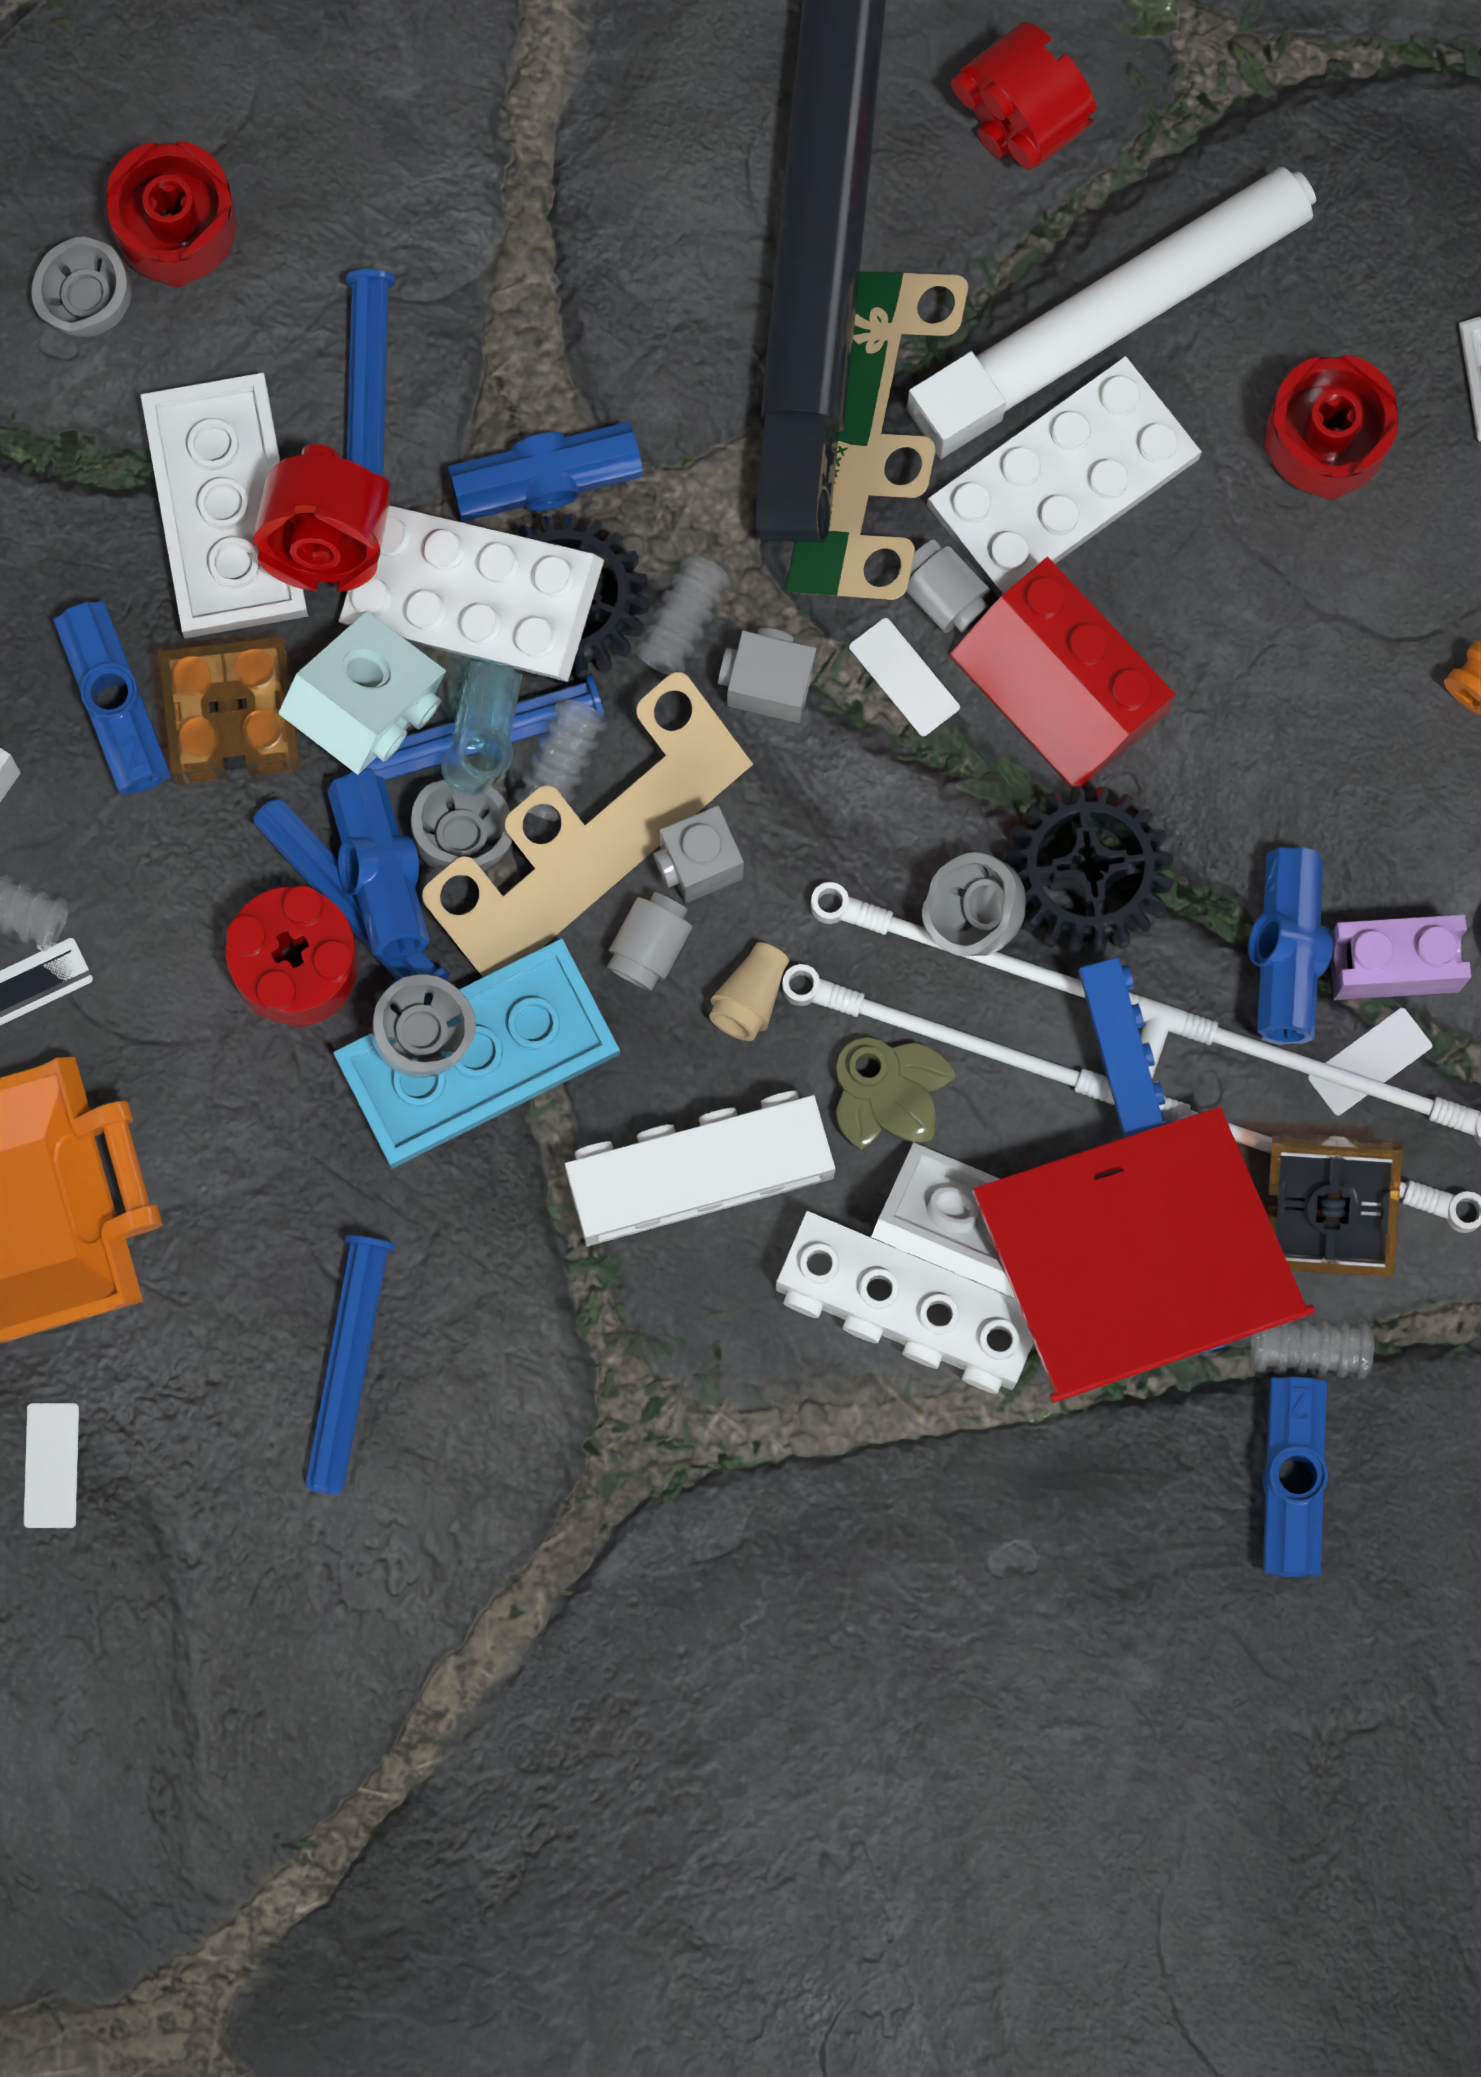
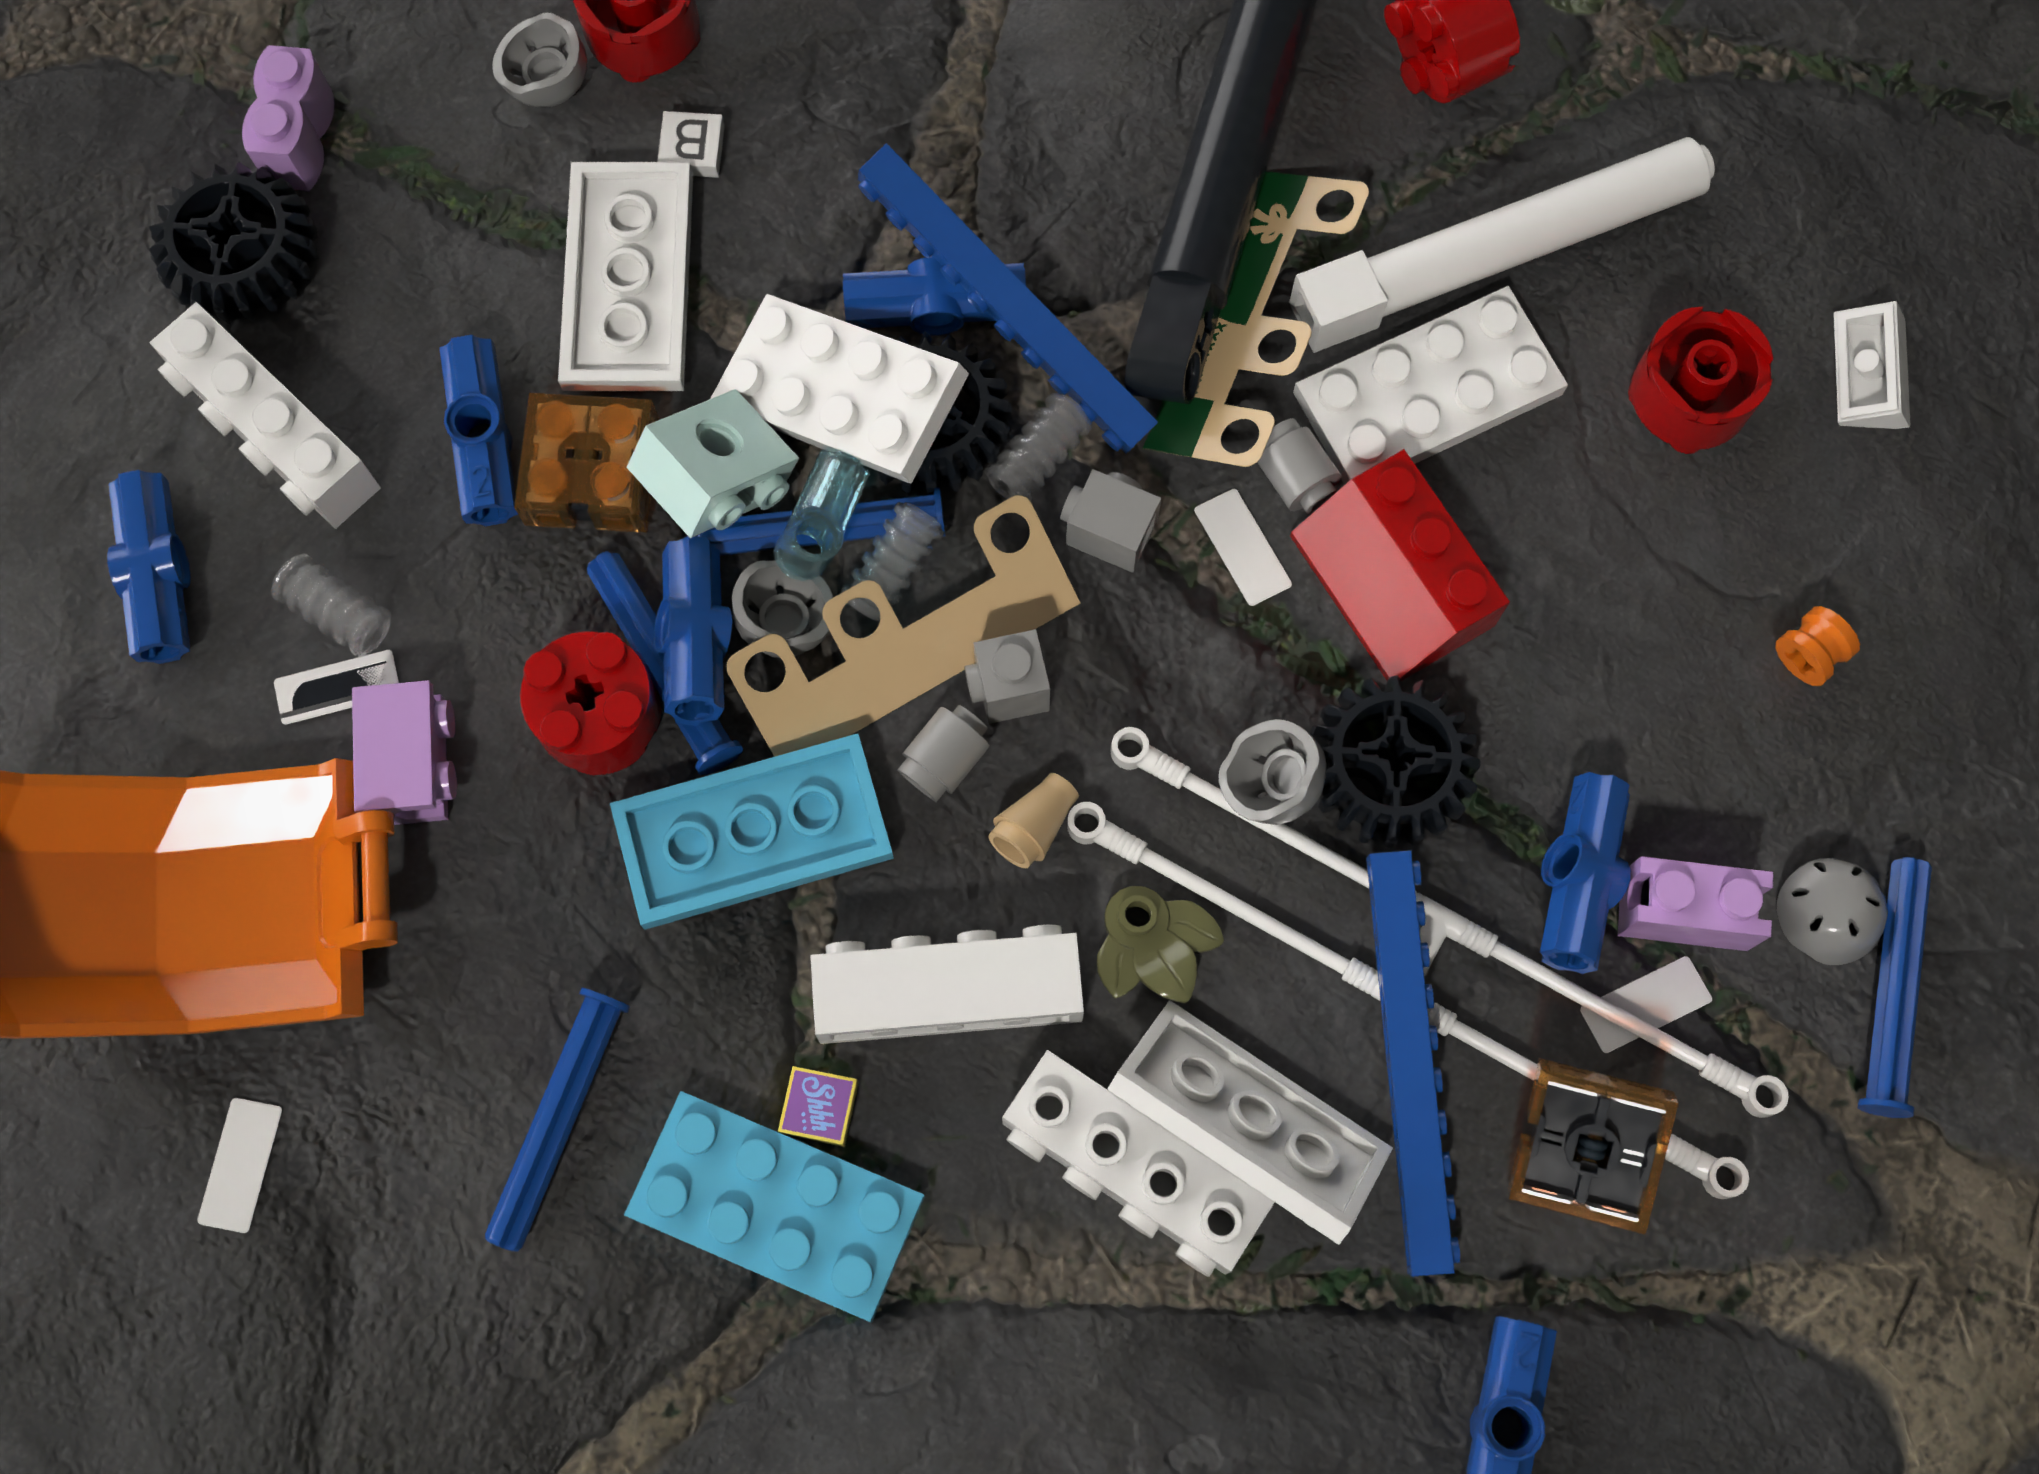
camera: 15 degrees right, 5 degrees down
(115, 1038) = (402, 751): none -> lavender brick
(257, 346) = (692, 139): none -> white tile
(321, 520) = (706, 293): red brick -> none
(368, 367) = (784, 193): blue axle -> none
(422, 1029) = (697, 796): light grey helmet -> none
(575, 1406) = (775, 1206): none -> medium azure plate
(596, 1306) = (818, 1106): none -> tile
(621, 468) = (1006, 299): none -> blue piece
(1140, 1259) = (1383, 1167): red piece -> none
(1315, 1348) = (1546, 1290): clear piece -> none

